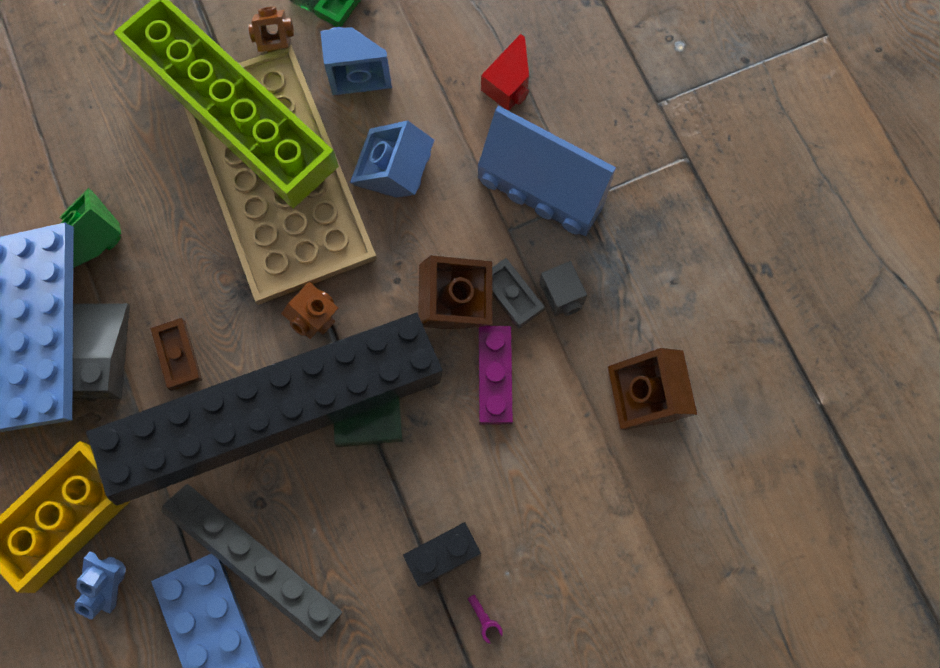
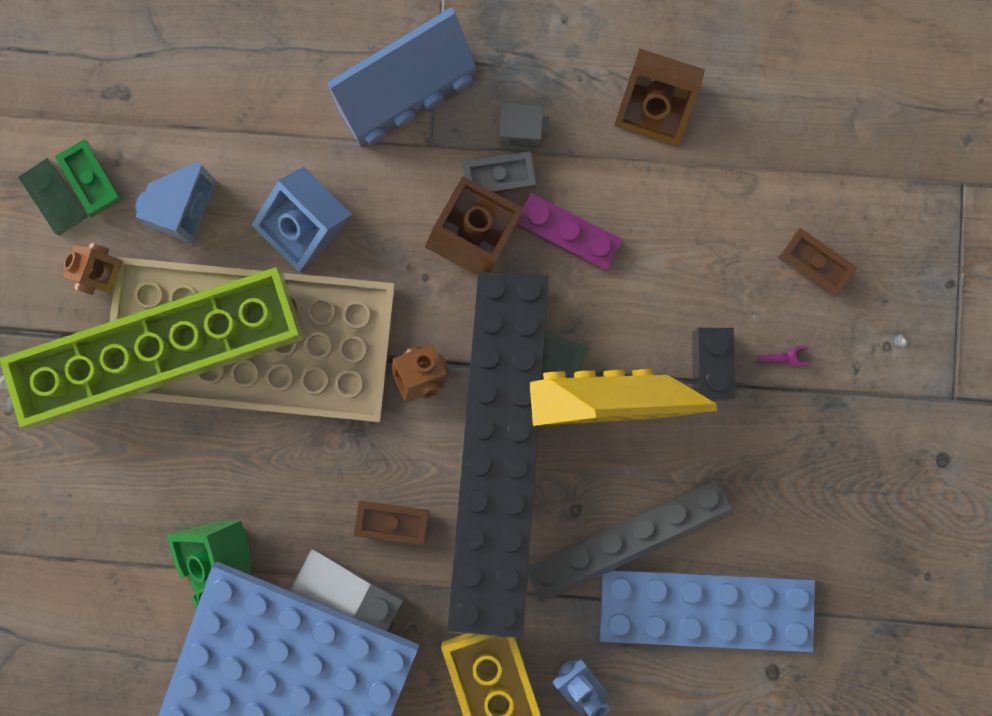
camera: 65 degrees left, 10 degrees up
(360, 476) = (612, 397): none -> yellow slope
(508, 76) = (273, 57): red slope -> none
(584, 604) = (817, 262): none -> reddish brown plate

